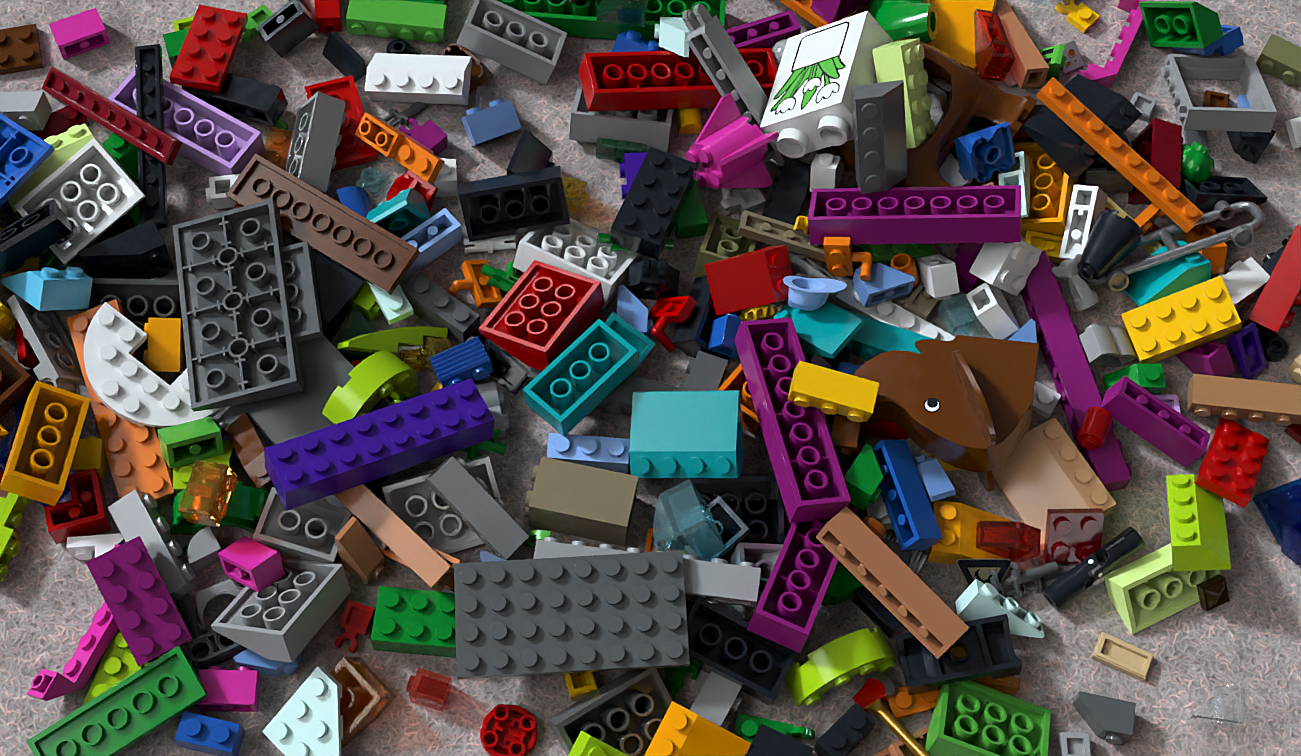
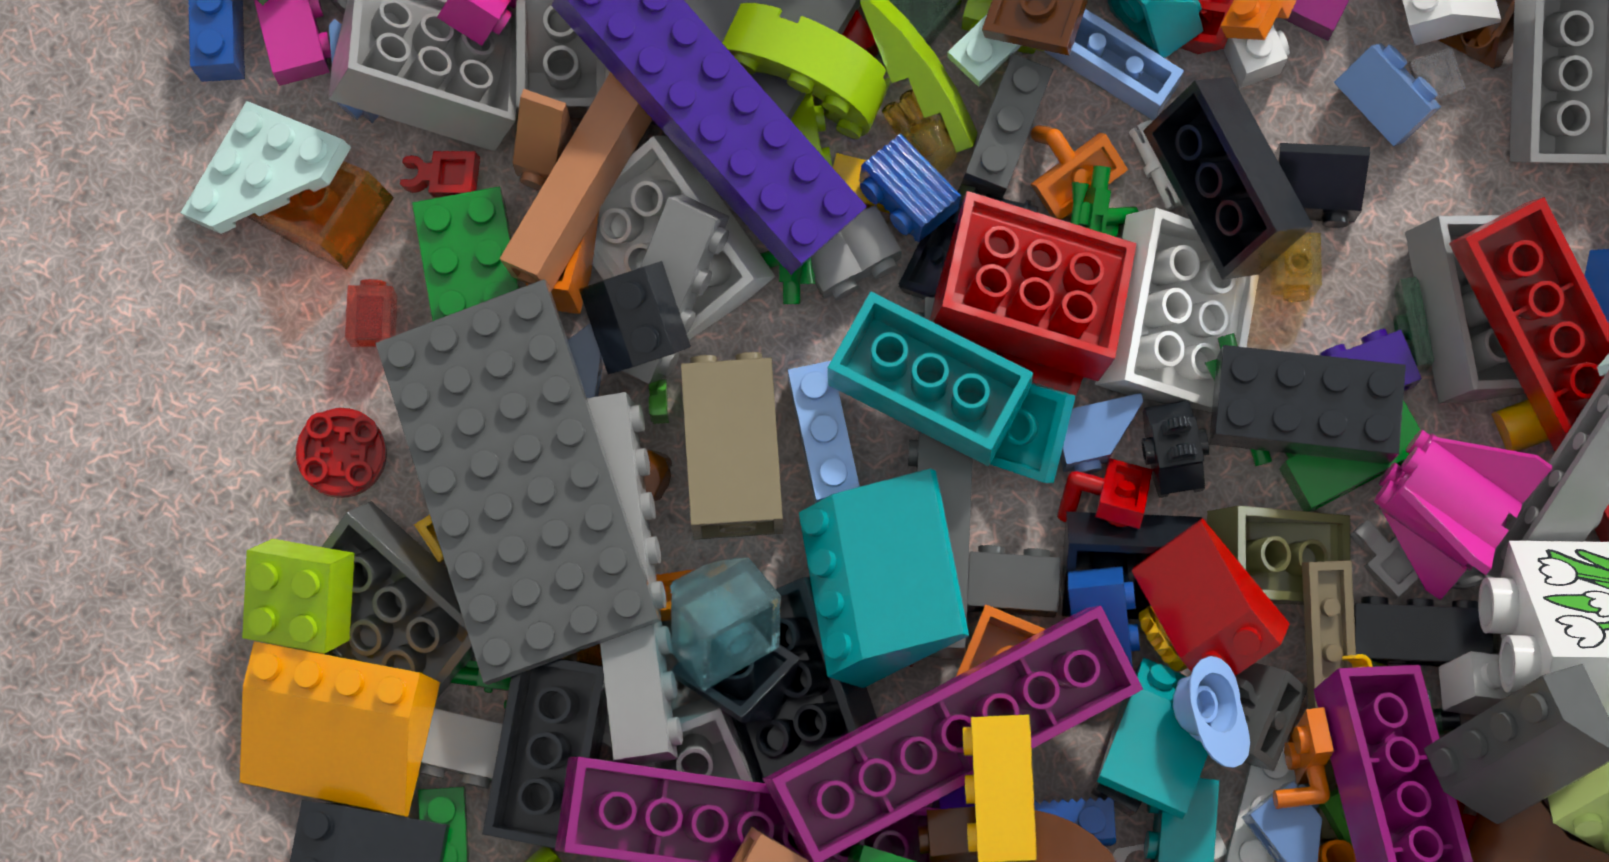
camera: 80 degrees right, 15 degrees up
(492, 527) = (635, 318): none -> black slope

